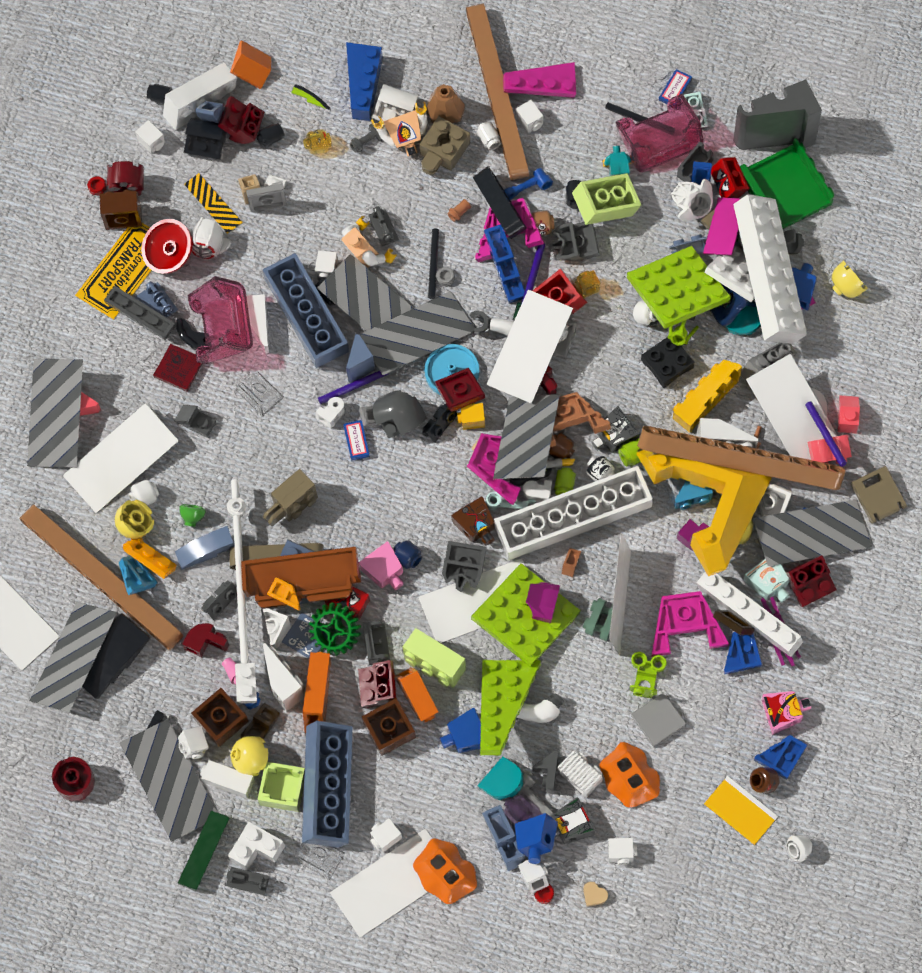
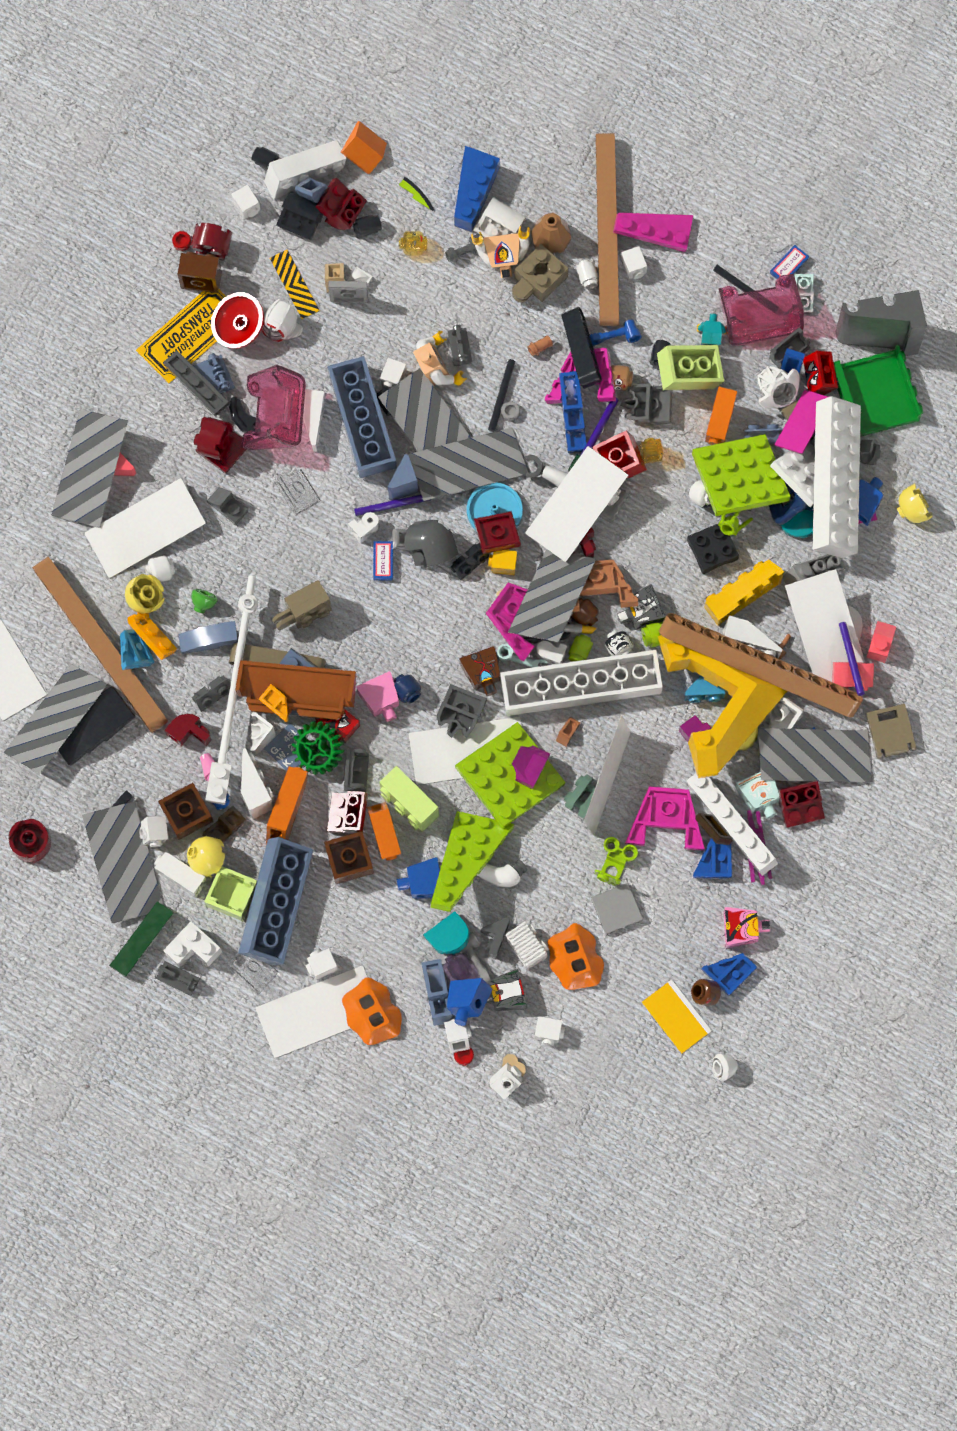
camera: 10 degrees right, 5 degrees up
(169, 359) = (214, 438): none -> dark red brick
(592, 907) = (506, 1080): none -> white brick
(646, 237) = (721, 416): none -> orange slope

